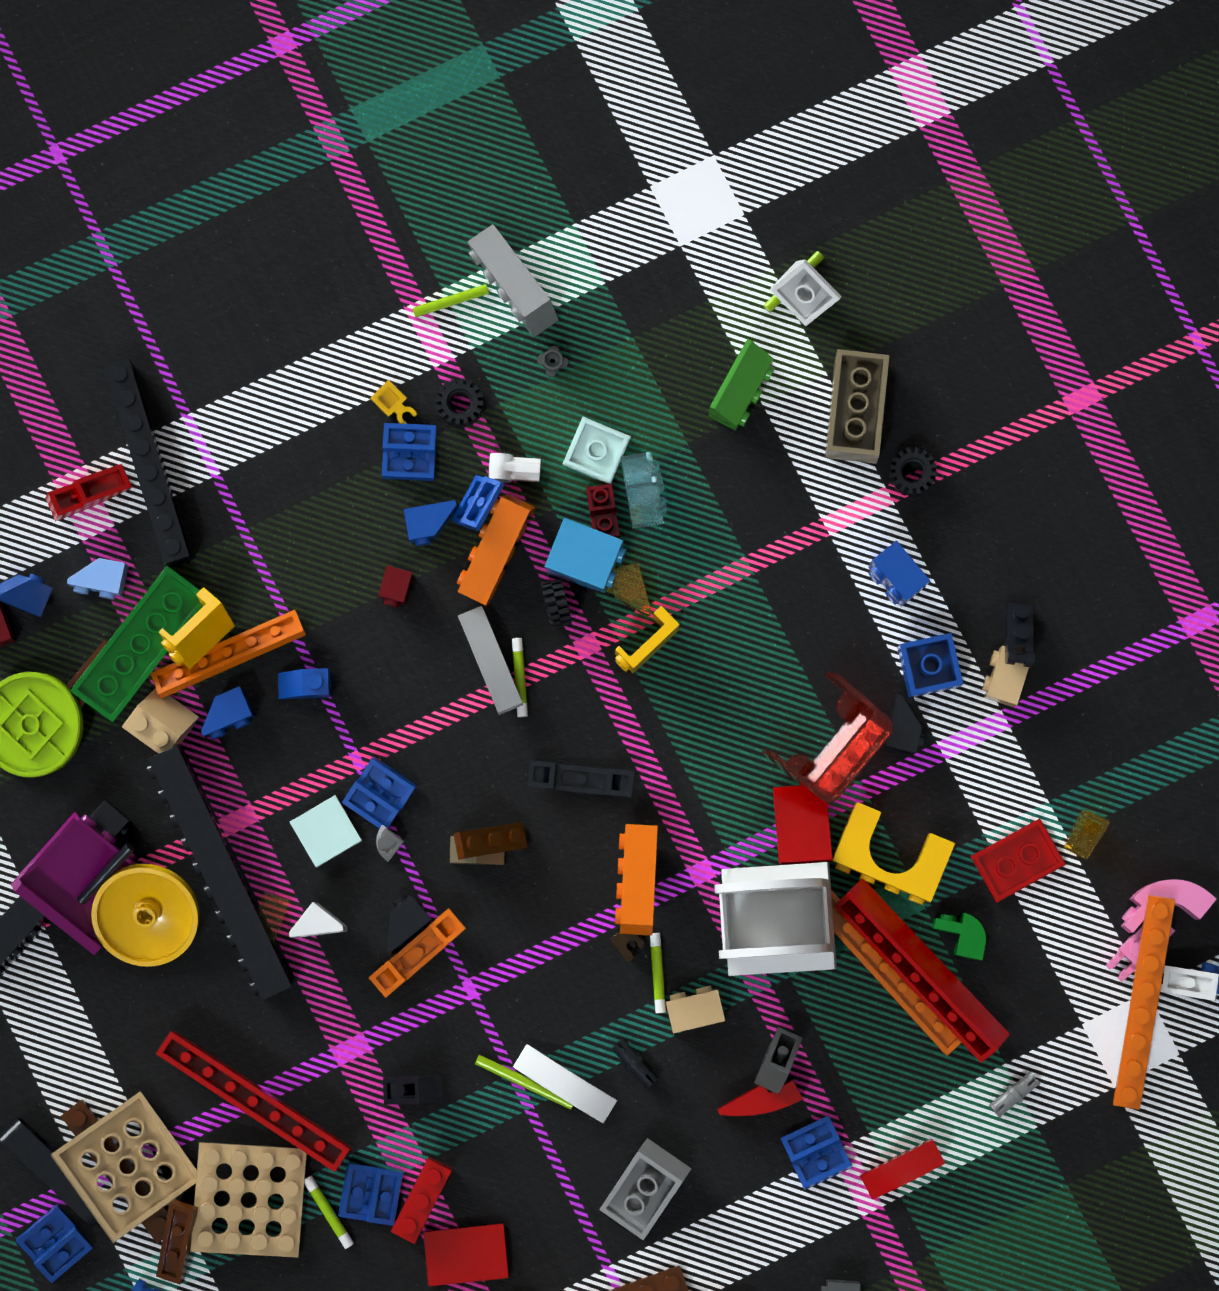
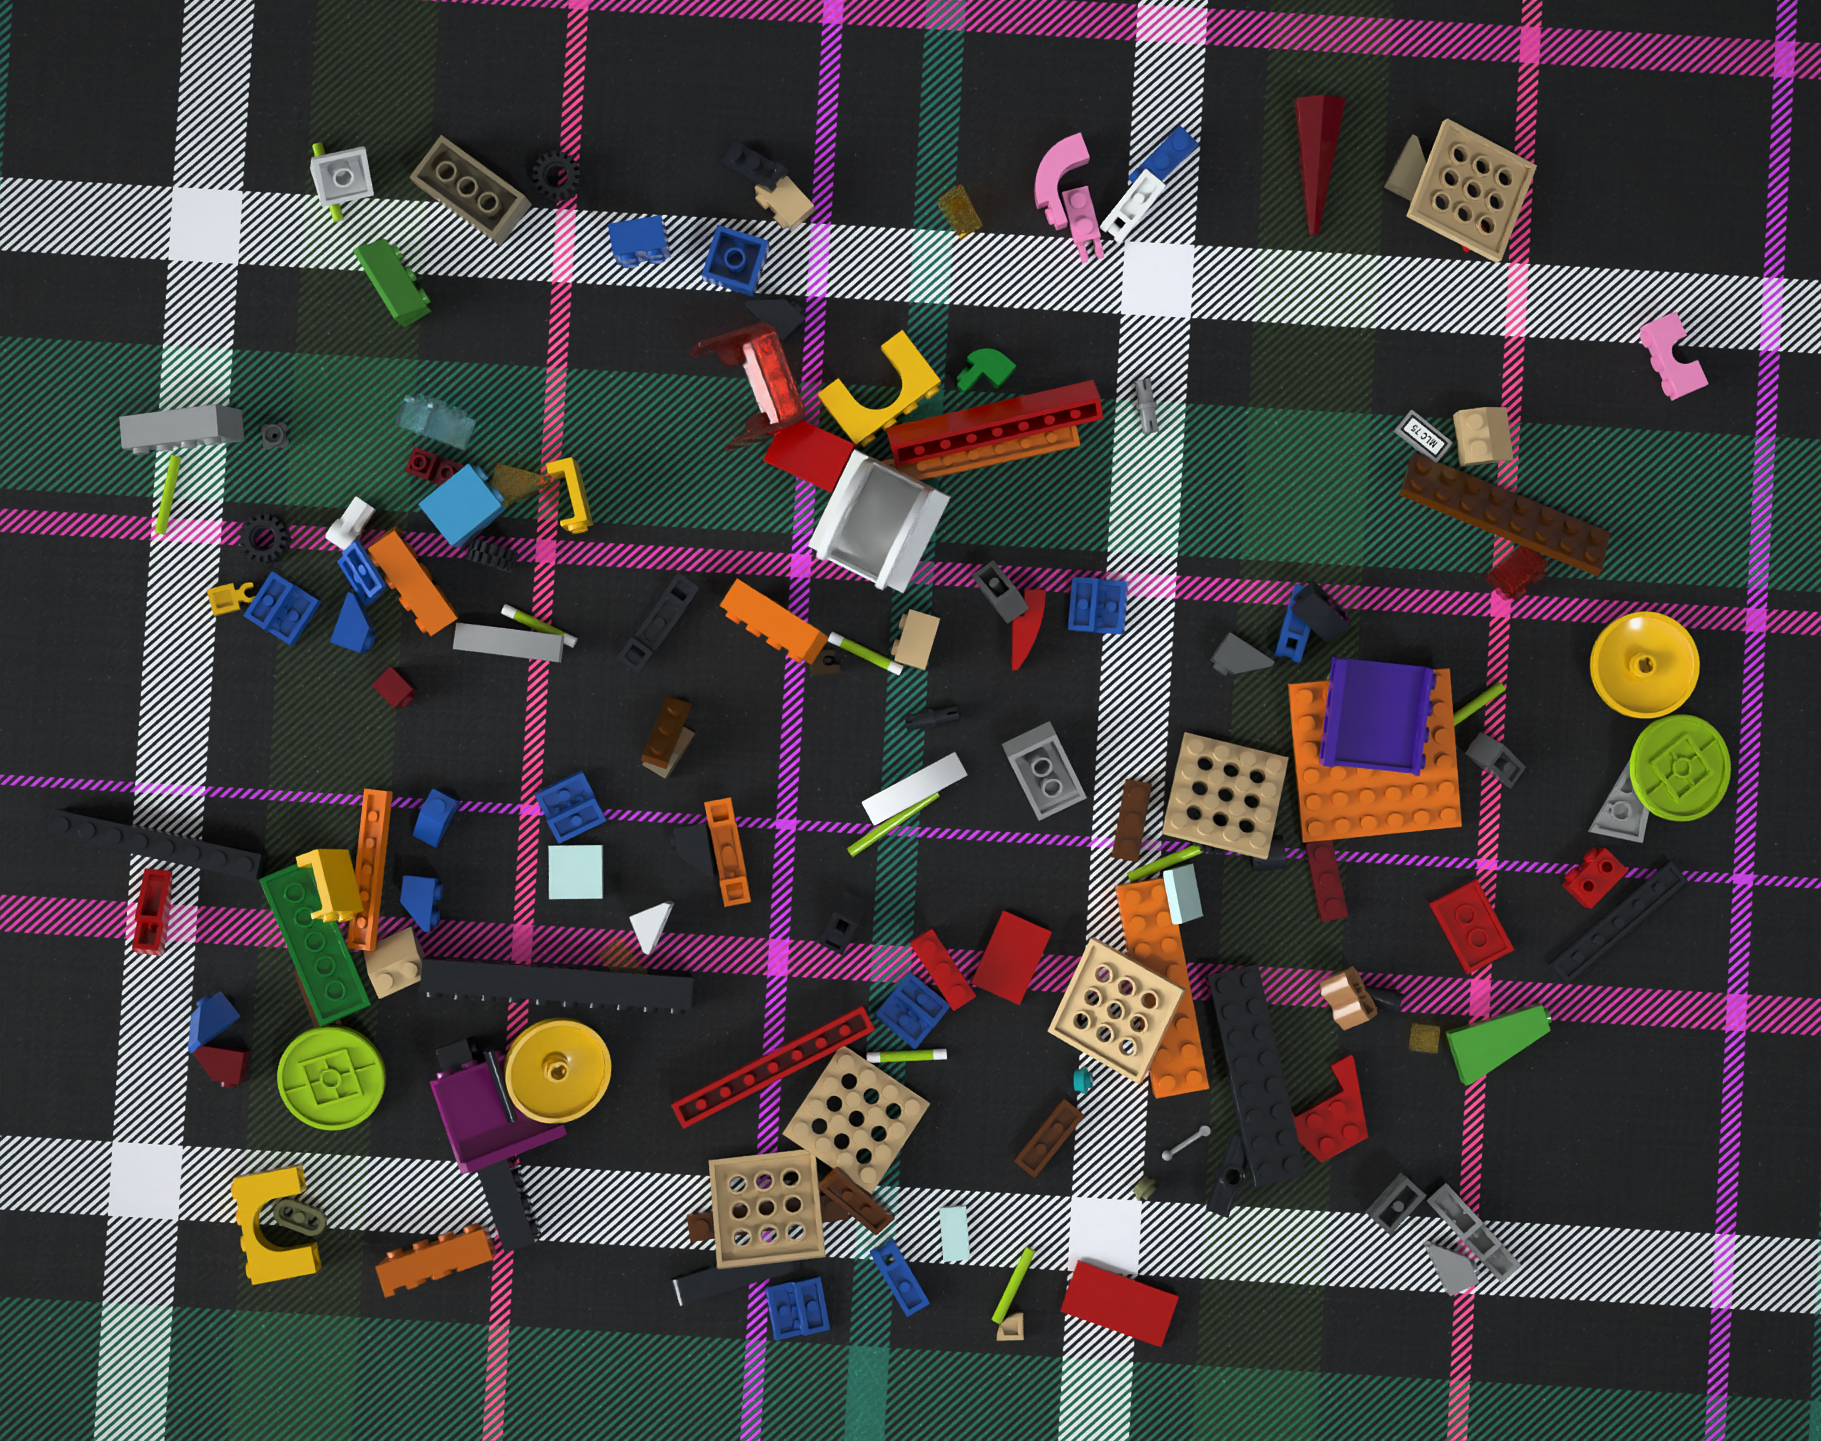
camera: 60 degrees left, 5 degrees up
(101, 576) = (236, 942): light blue slope -> none
(387, 843) = (617, 823): light grey tile -> none
(596, 450) = (377, 443): light aqua tile -> none
(902, 1169) = (1154, 539): red slope -> none
(1017, 860) = (949, 285): red tile -> none
(1144, 1001) = (1131, 247): orange plate -> none

